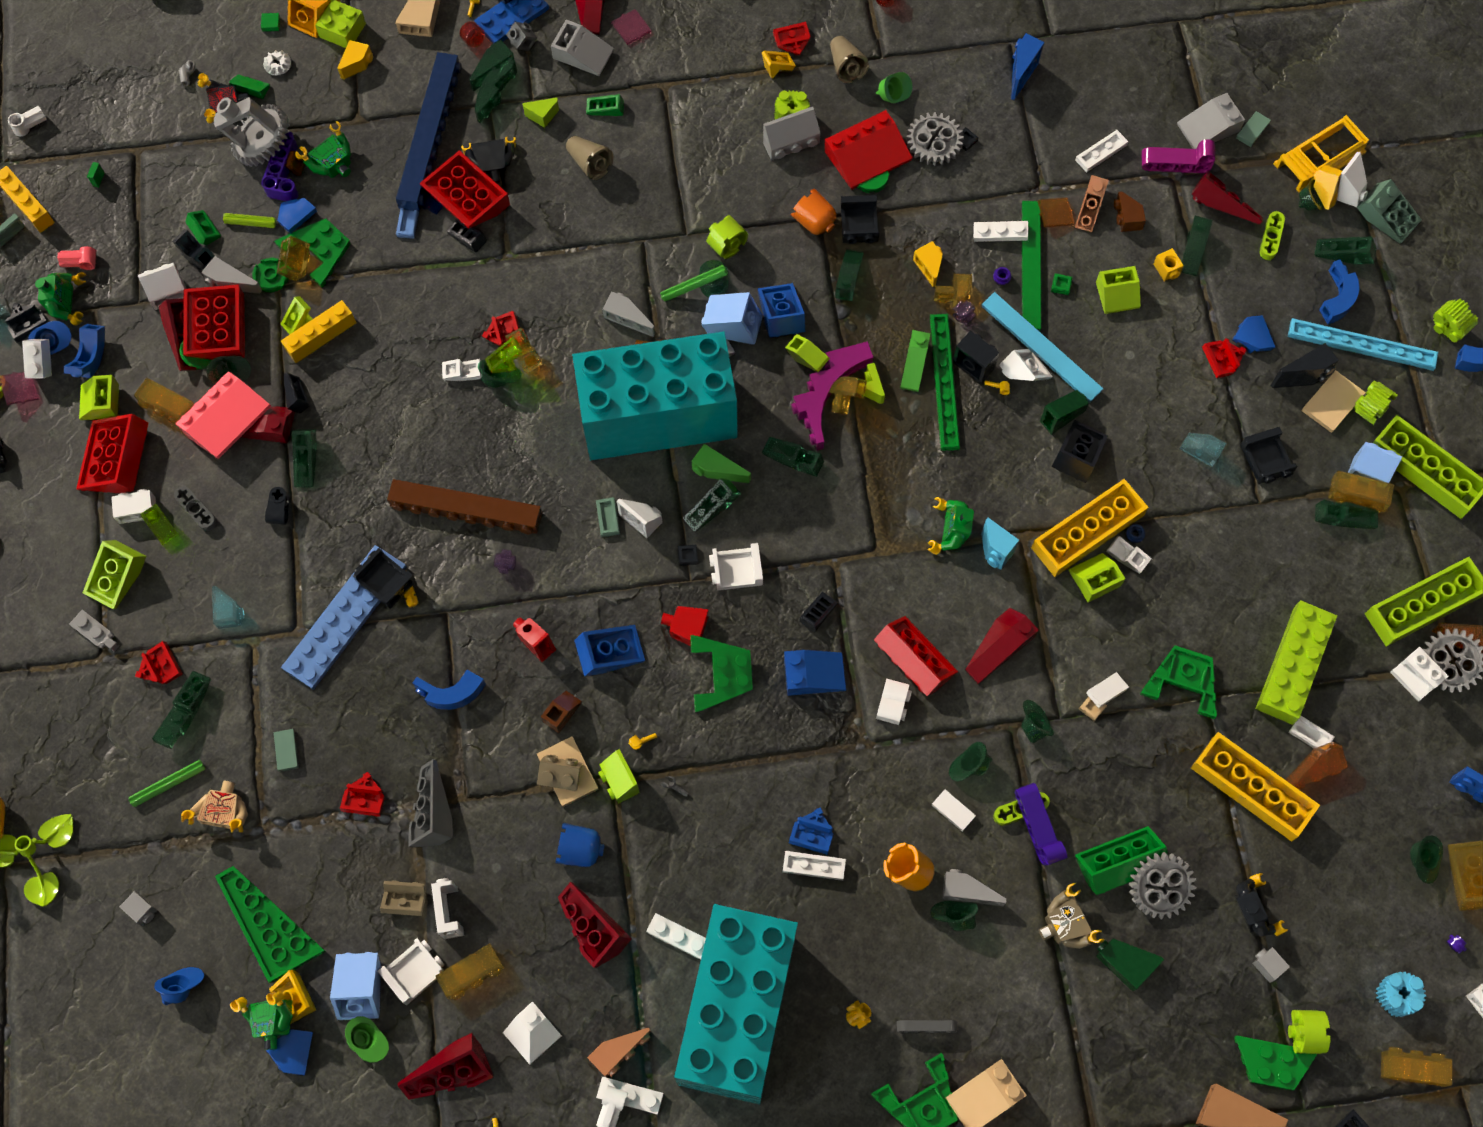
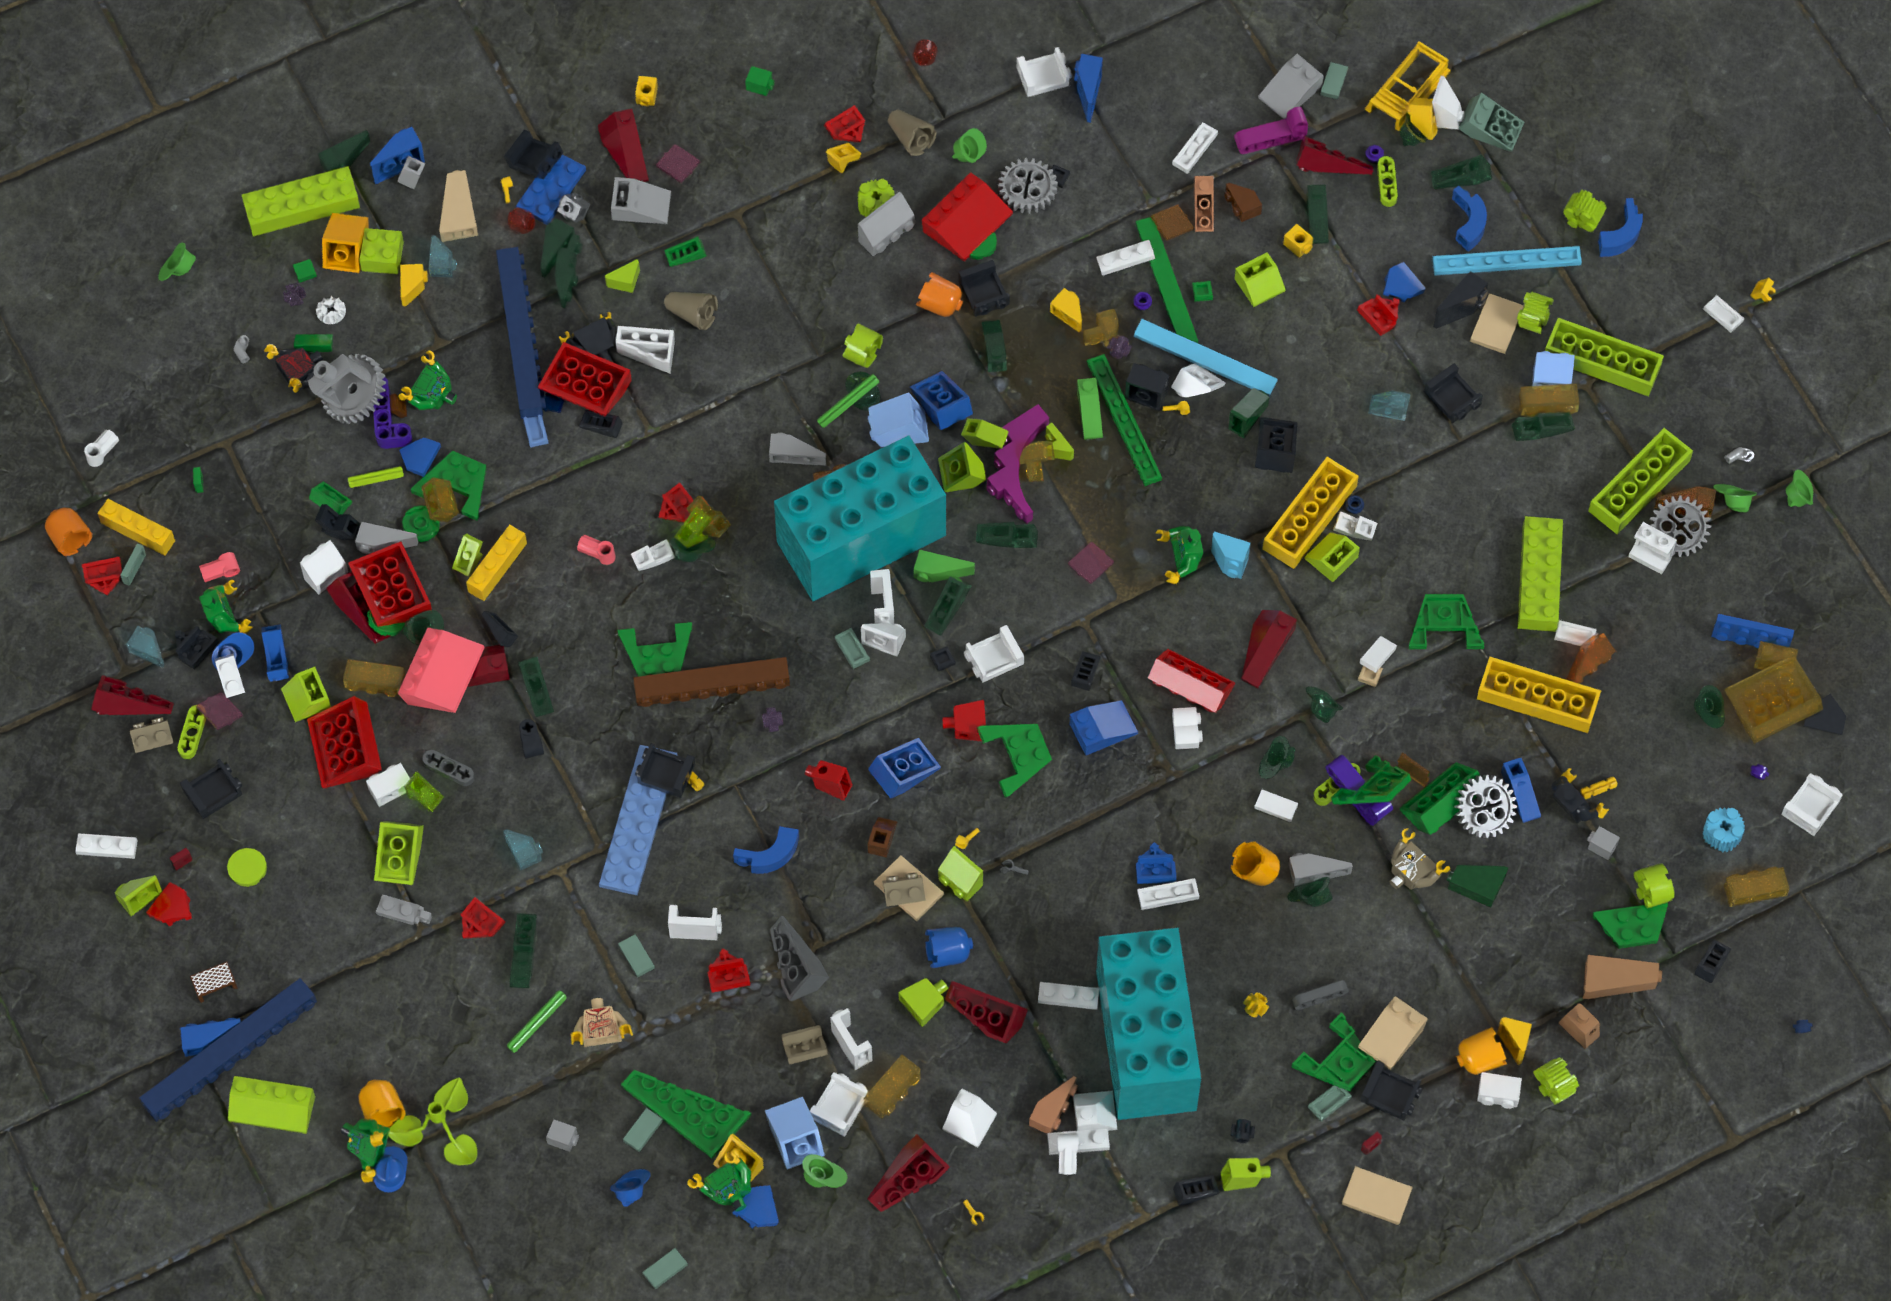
camera: 20 degrees left, 5 degrees down
(177, 1082) = (665, 1268): none -> sand green tile
(217, 929) = (642, 1130): none -> sand green tile
(250, 41) = (294, 294): none -> clear purple gear
(331, 734) = (694, 926): none -> white panel
(387, 47) = (441, 259): none -> clear light blue slope
(413, 348) = (596, 549): none -> coral piece
(428, 468) = (657, 657): none -> green wing
(534, 177) = (647, 346): none -> white wedge
(536, 891) = (923, 999): none -> lime torso
(656, 1069) = (1095, 1111): none -> white slope
(657, 465) = (882, 584): none -> white panel
(774, 379) = (961, 469): none -> lime slope
(862, 507) = (1091, 562): none -> clear pink piece
(987, 44) = (1044, 73): none -> white panel
(1060, 832) = (1379, 788): none -> green wing
(1102, 821) = (1415, 770): none -> clear orange piece
(1205, 868) = (1517, 777): none -> blue slope
(1268, 210) = (1374, 158): none -> dark purple plate
(1284, 903) = (1598, 787): none -> yellow axle

